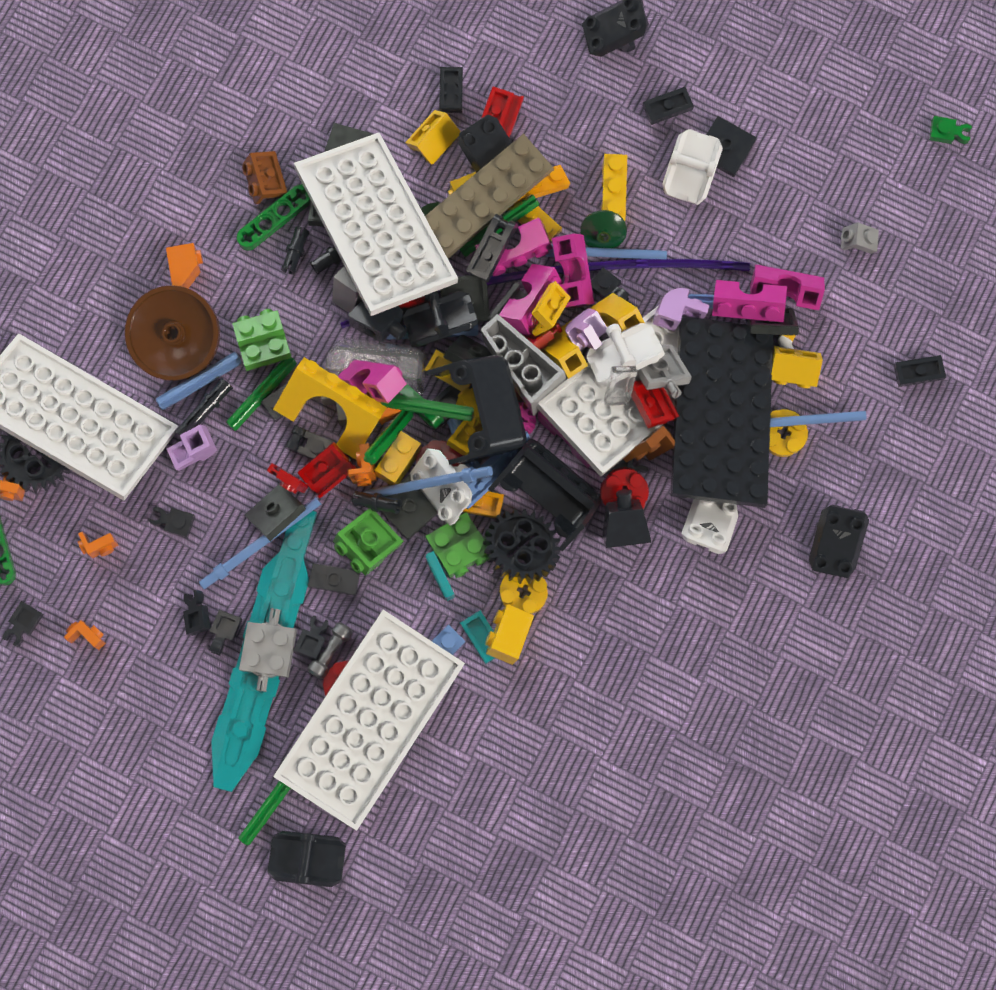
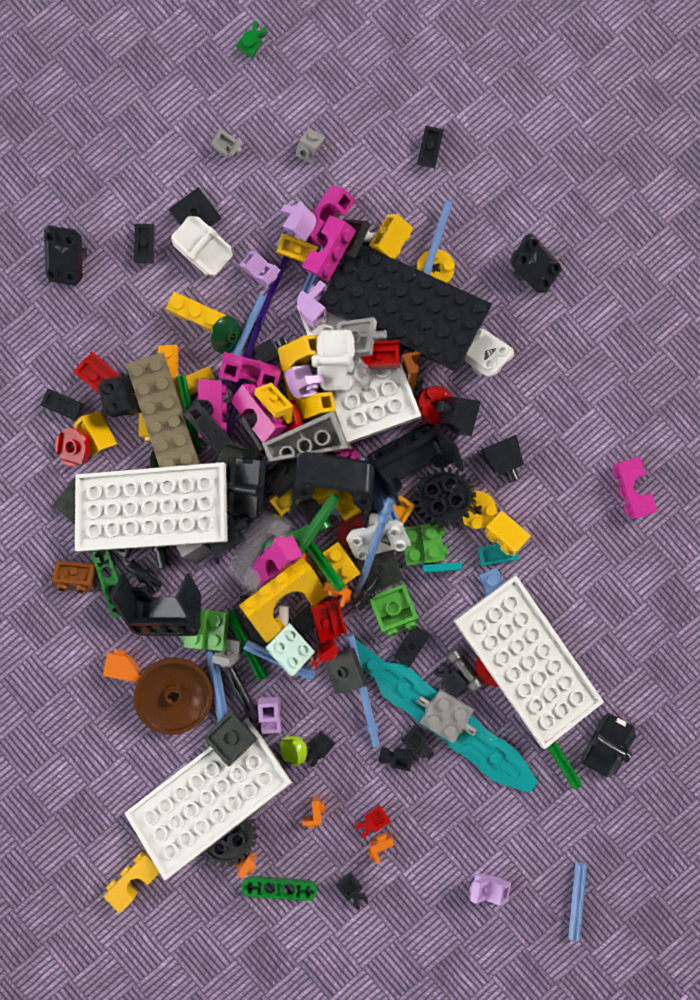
camera: 60 degrees left, 10 degrees up
(82, 781) = (490, 889): none -> lavender brick
(104, 897) = (577, 901): none -> medium blue axle
(114, 617) = (375, 820): none -> red plate
(148, 413) = (230, 738): none -> pearl dark grey plate
(161, 491) = (293, 750): none -> lime hair
(243, 379) = (230, 655): none -> light grey bracket
(257, 282) = (159, 615): none -> black windscreen
(258, 435) = (265, 654): none -> medium blue axle
(275, 437) = (290, 649): none -> light aqua bracket
(308, 421) = (283, 617): none -> white arm
(417, 124) = (81, 443): none -> plate
(597, 597) = (504, 457): none -> black torso
(642, 749) = (636, 504): none -> dark pink arch
(694, 238) = (259, 269): none -> lavender brick
(735, 266) = (294, 248): none -> yellow plate
(767, 258) = (299, 221): none -> lavender brick
(818, 147) = (226, 144): none -> light grey bracket

